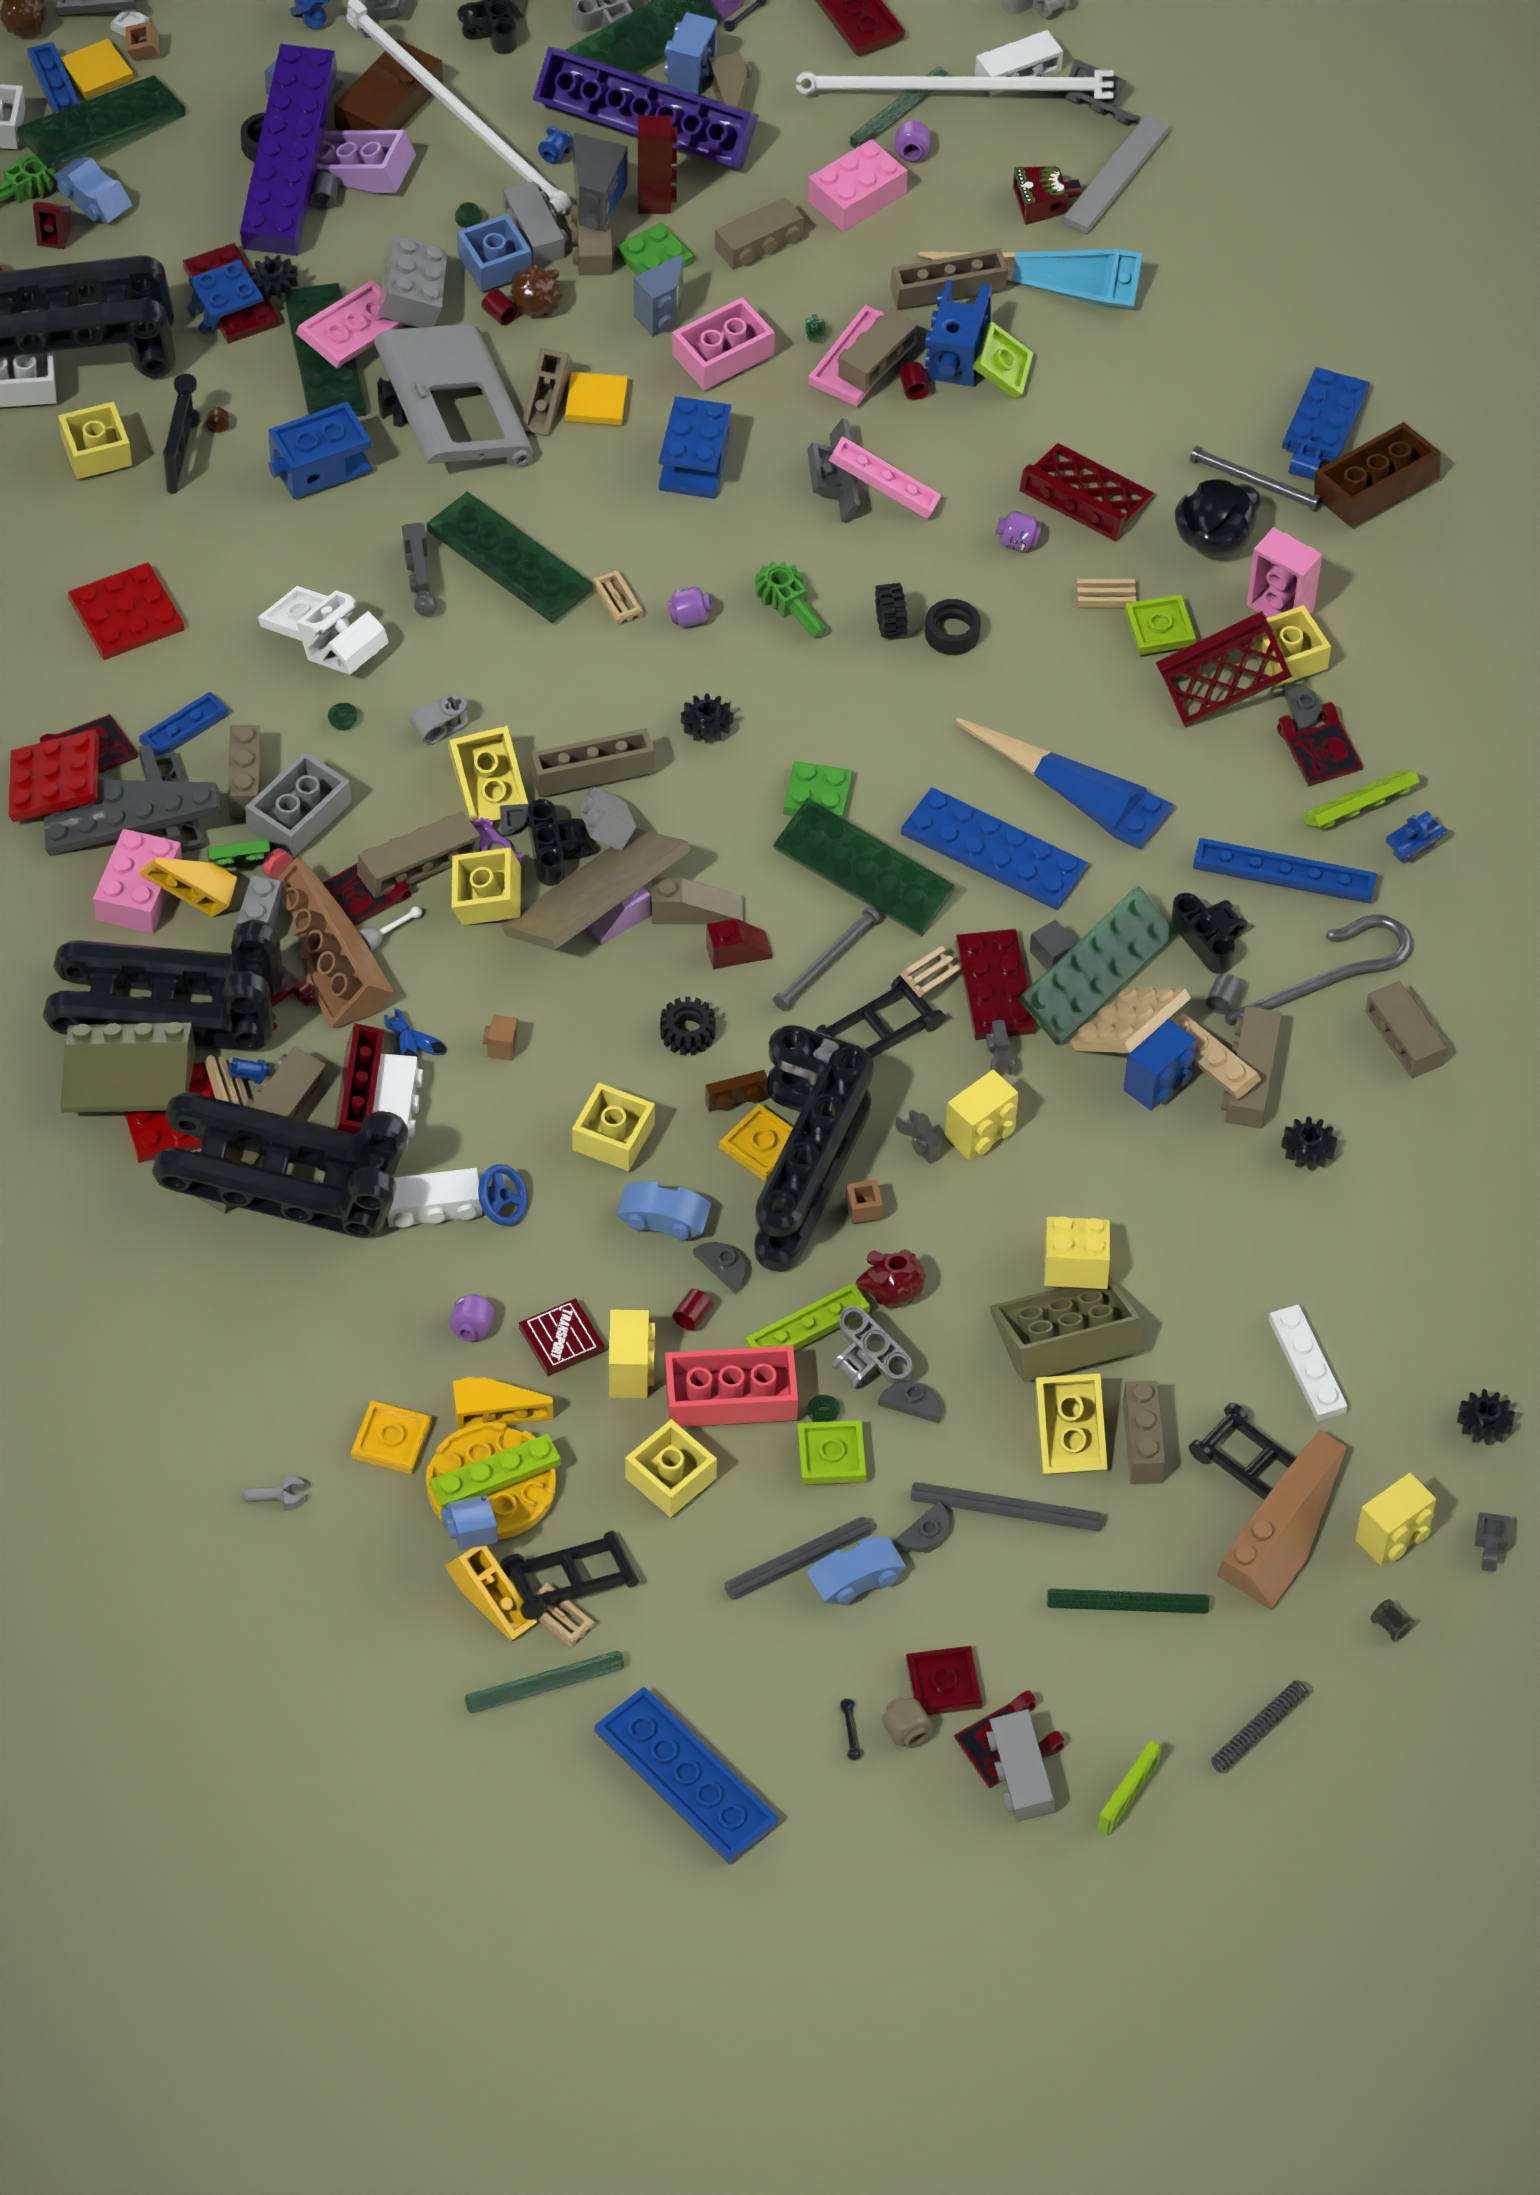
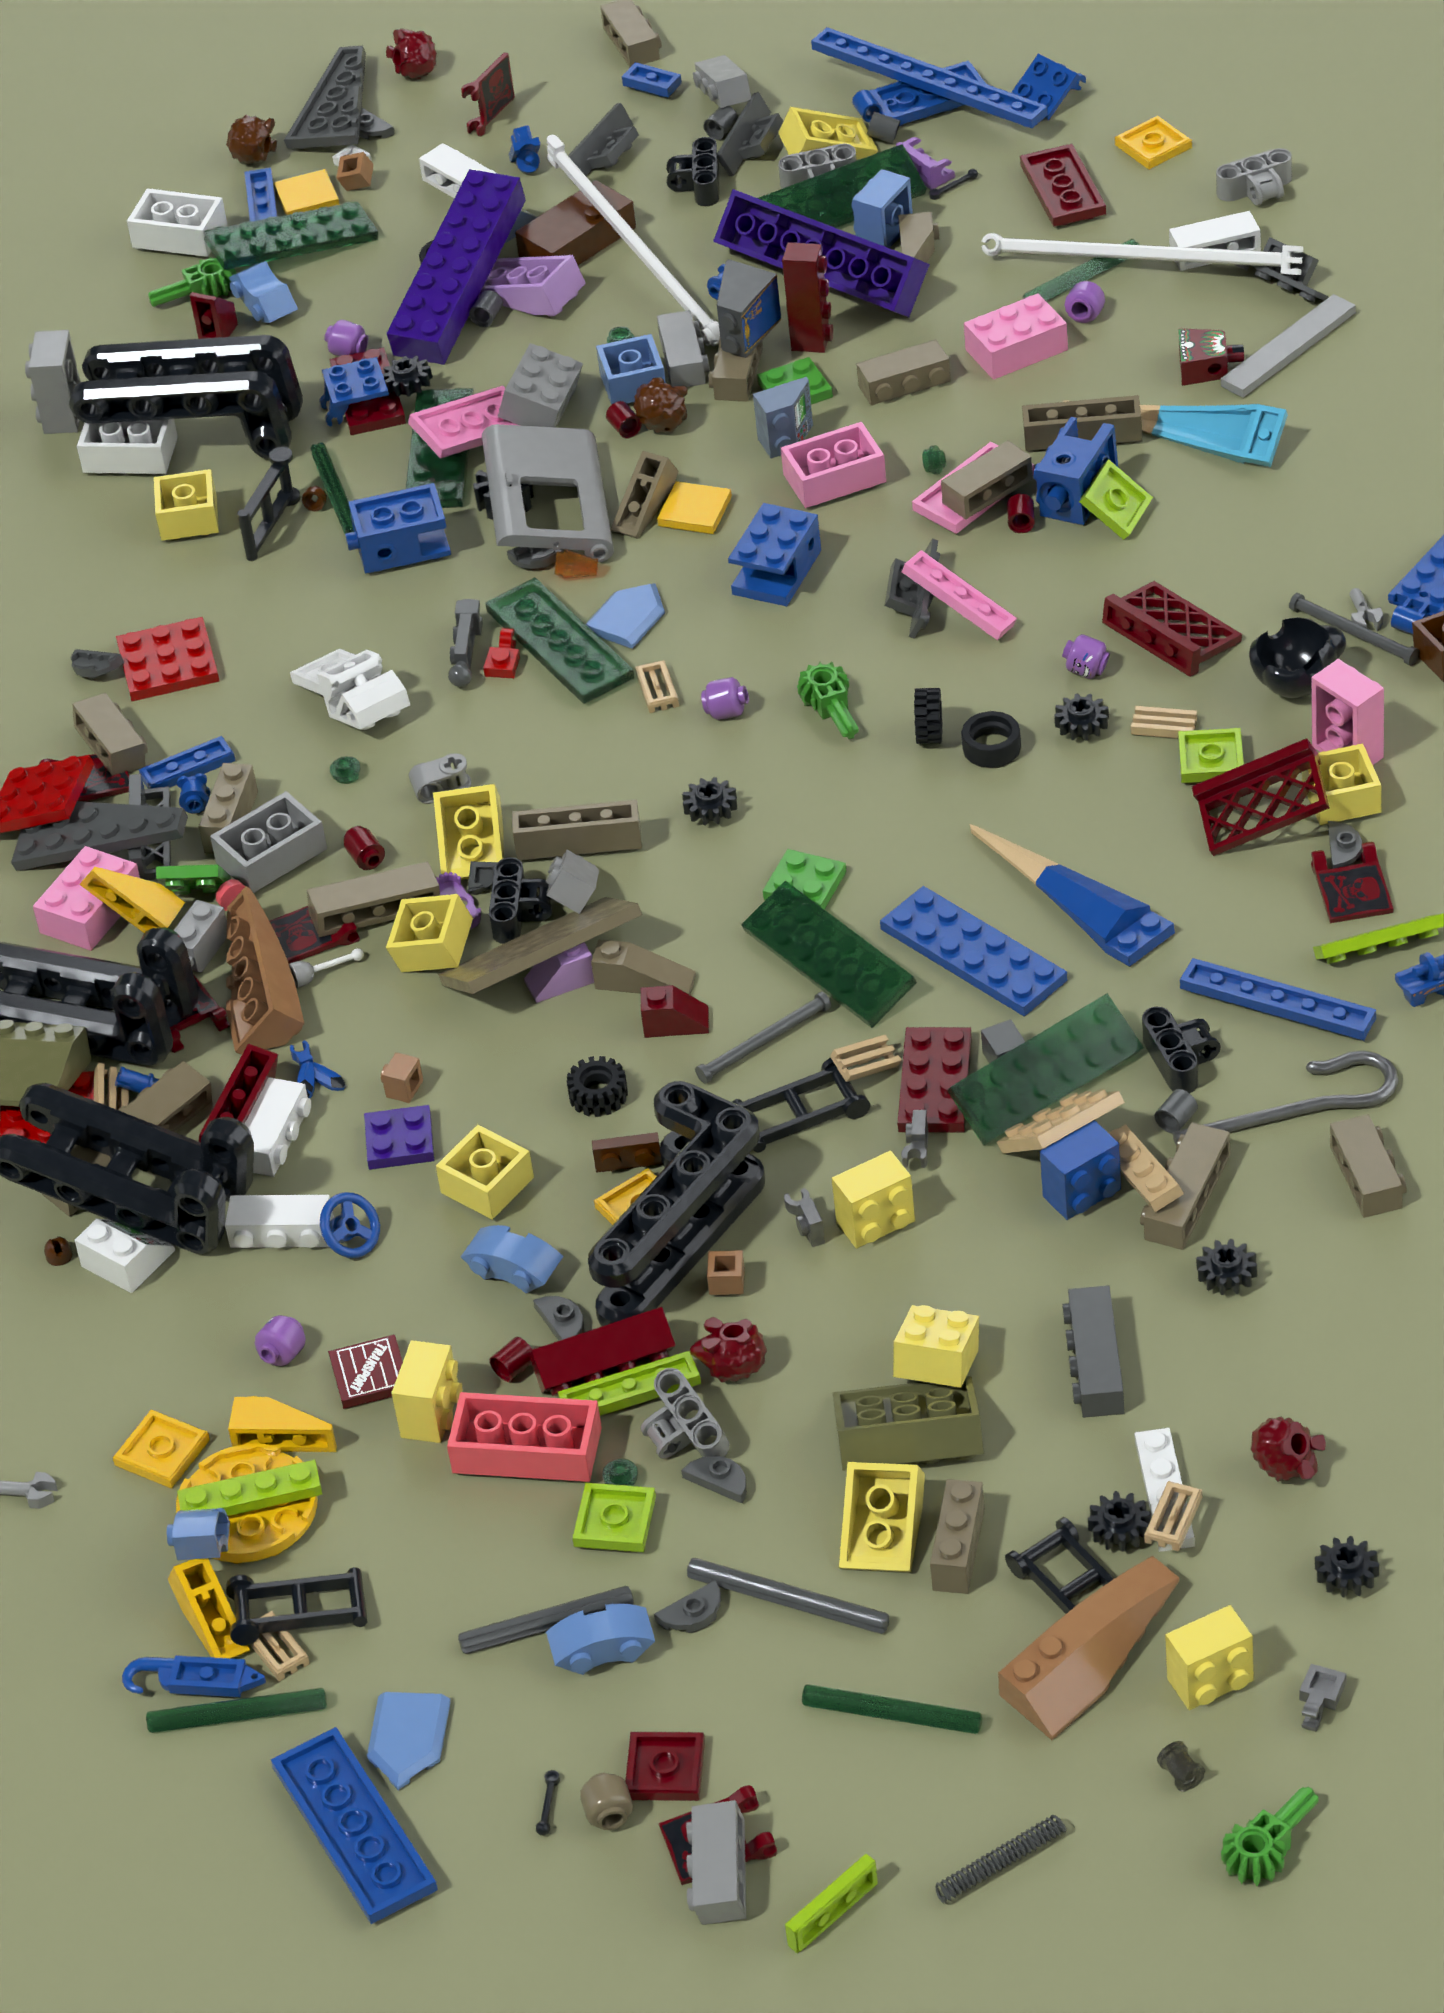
camera: 20 degrees right, 10 degrees down
(56, 623) = (94, 663): none -> dark grey plate
(99, 701) = (109, 734): none -> dark tan brick
(194, 237) = (346, 338): none -> medium lavender head
(204, 757) = (193, 793): none -> blue brick
(222, 1254) = (59, 1258): none -> reddish brown hinge
(233, 407) = (333, 485): none -> clear green axle
(246, 36) = (447, 168): none -> white brick
(291, 1248) = (120, 1253): none -> white slope
(389, 800) = (363, 848): none -> dark red brick
(455, 470) = (532, 557): none -> dark grey plate
(459, 583) = (503, 660): none -> red plate
(498, 1654) = (196, 1675): none -> blue plate
(499, 473) = (573, 564): none -> clear orange cone
(515, 1097) = (399, 1137): none -> dark purple plate
(566, 522) = (628, 615): none -> medium blue tile
(670, 1468) = (434, 1510): light yellow brick -> none
(705, 1683) = (407, 1734): none -> medium blue tile
(776, 1292) = (602, 1350): none -> dark red brick
(1030, 595) = (1081, 716): none -> black gear
(1215, 1239) = (1095, 1351): none -> dark grey brick
(1259, 458) = (1364, 612): none -> light grey bar
(1279, 1399) = (1118, 1521): none -> black gear
(1325, 1411) = (1165, 1537): none -> tan tile
(1409, 1314) = (1286, 1449): none -> dark red animal
(1481, 1675) = (1261, 1845): none -> bright green gear

